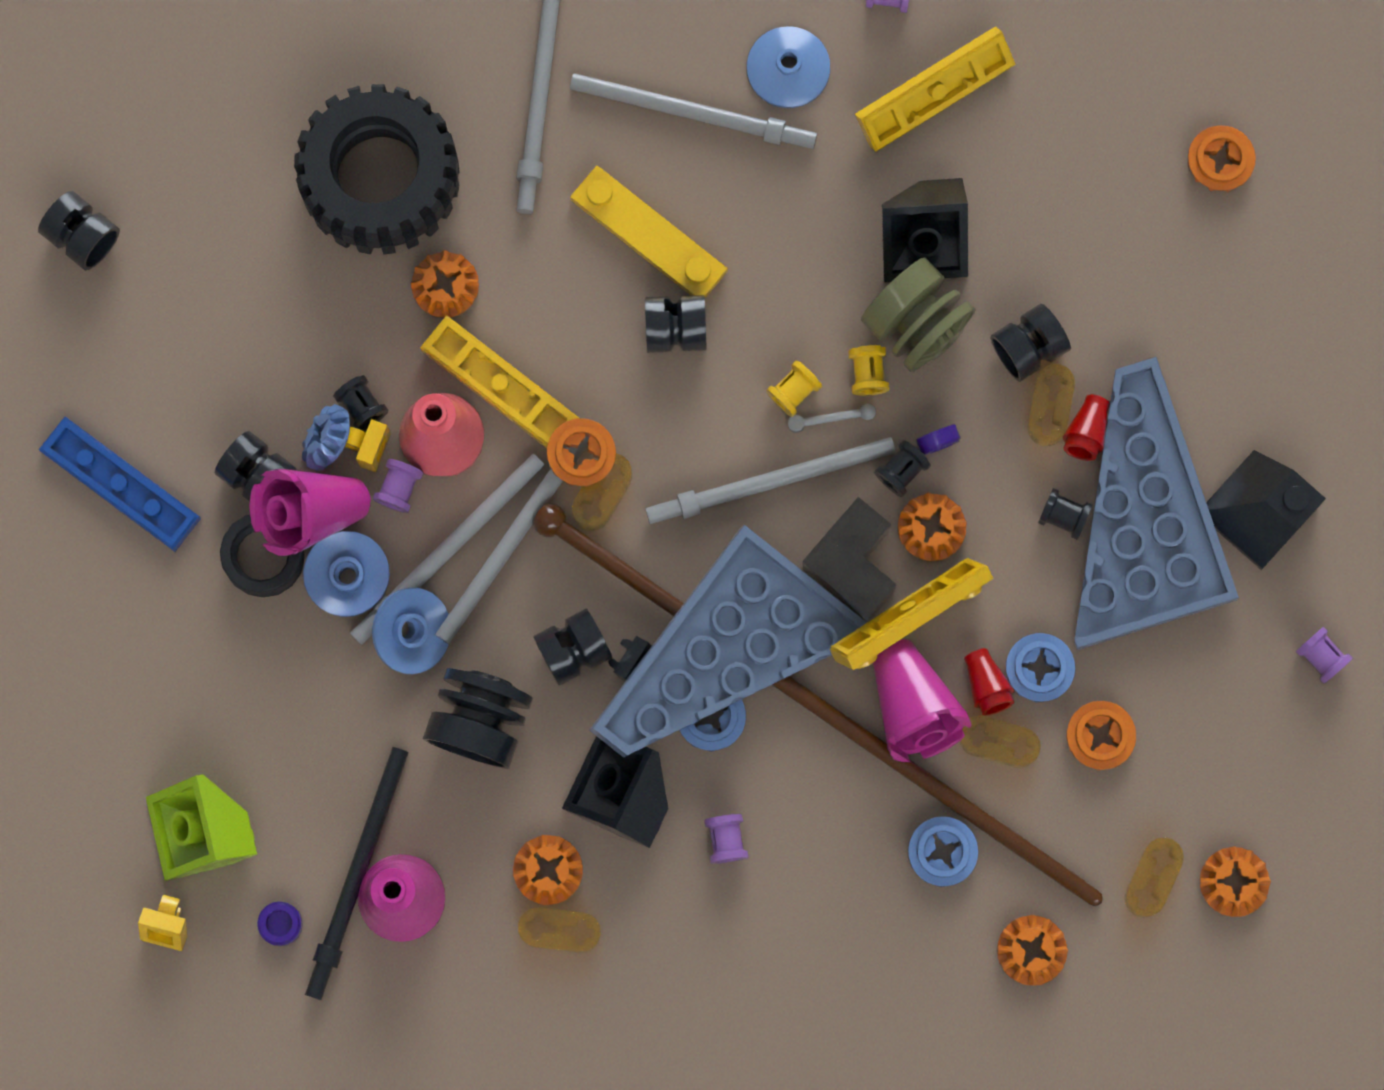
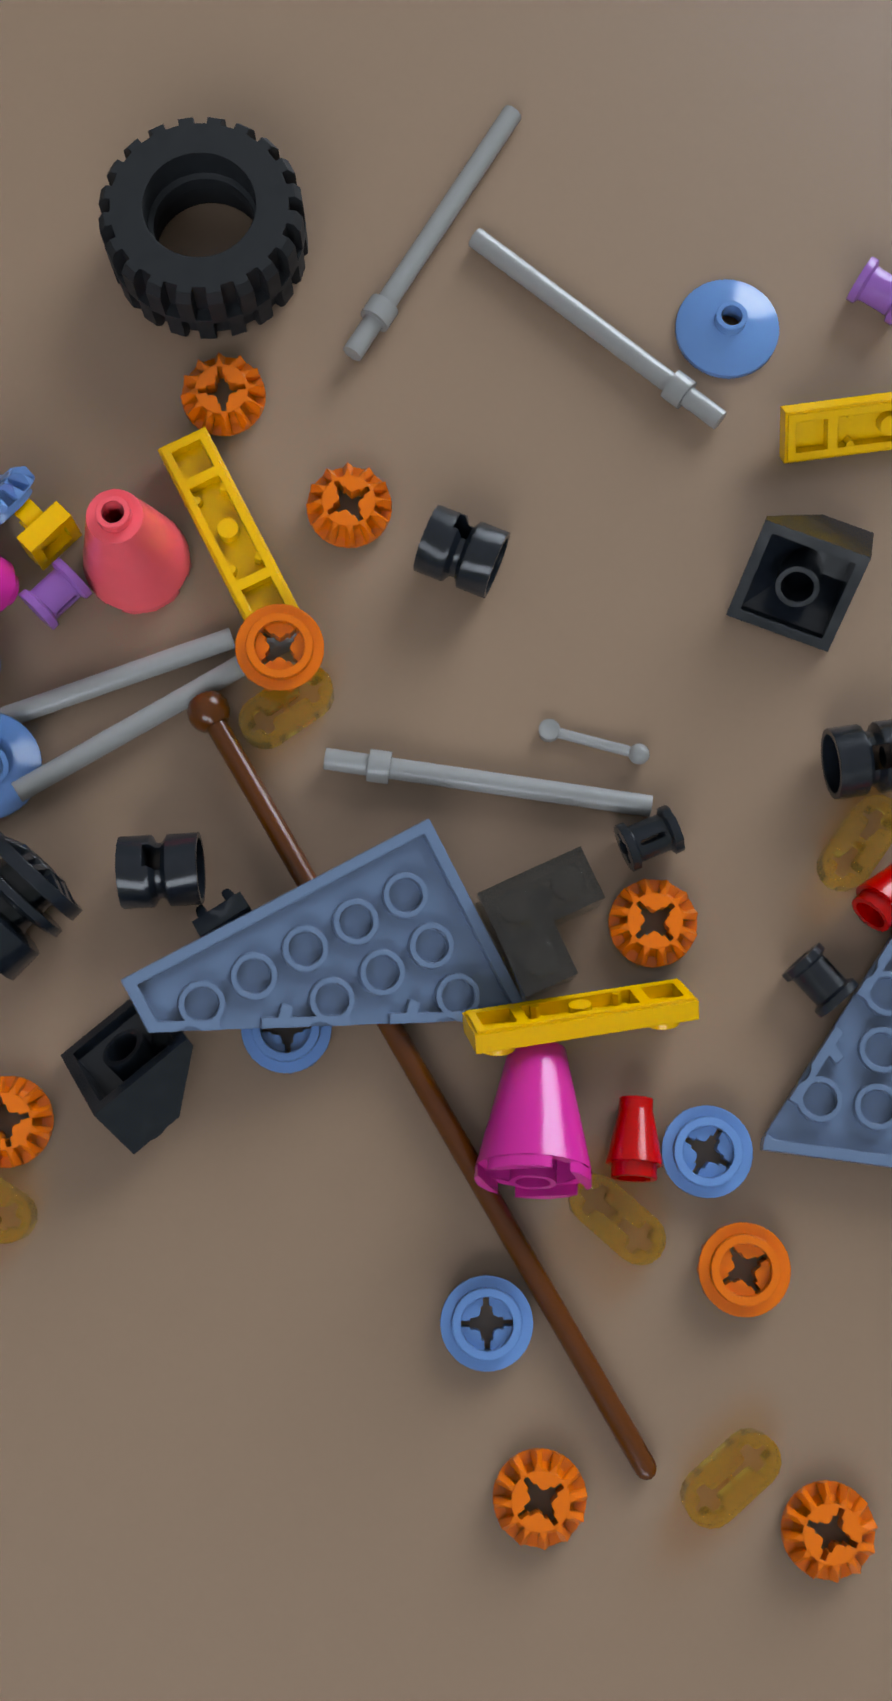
camera: 20 degrees right, 0 degrees up
(360, 402) = (70, 494): black bush -> none
(579, 344) = (341, 527): none -> orange gear
(648, 233) = (480, 440): yellow plate -> none
(726, 838) = (232, 1185): medium lavender bush -> none
(794, 388) = (565, 687): yellow bush -> none
(868, 370) = (662, 705): yellow bush -> none
(918, 315) = (747, 656): olive wheel -> none
(938, 440) = (707, 823): dark purple tile -> none

